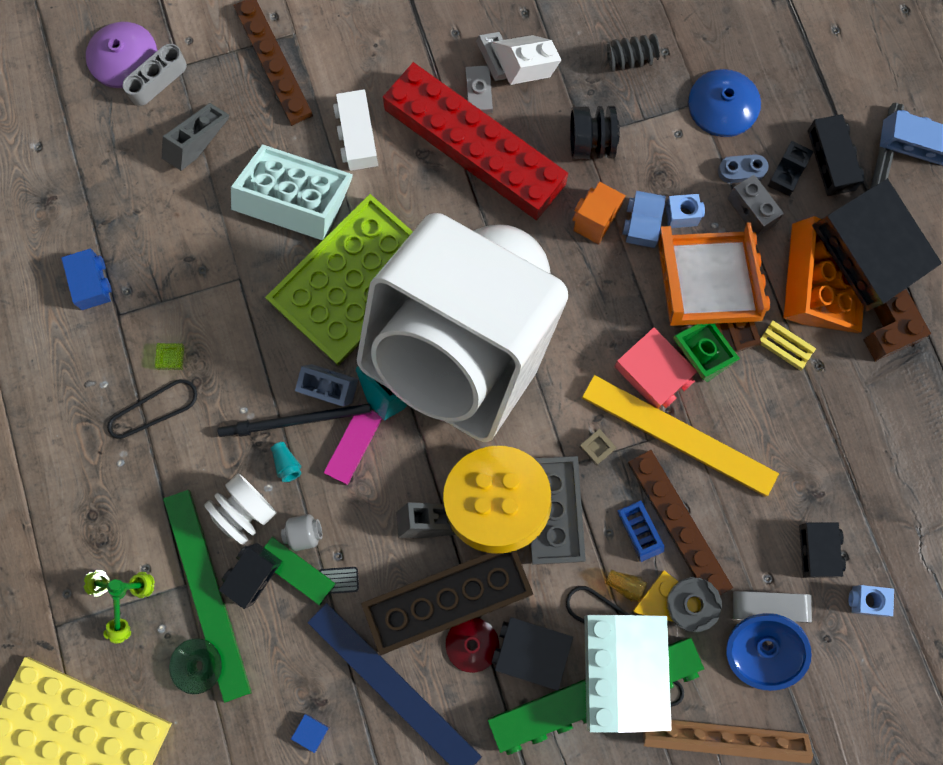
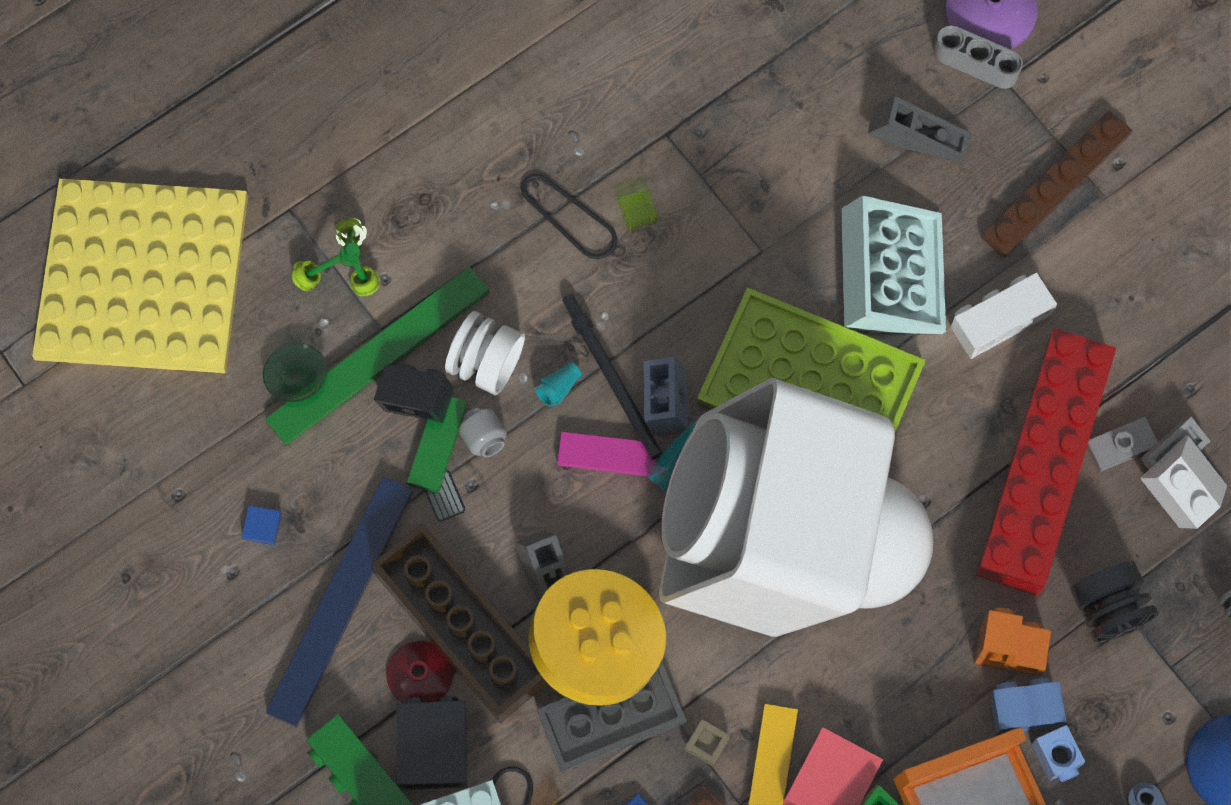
camera: 70 degrees right, 5 degrees down
(86, 279) = (693, 83): blue brick -> none

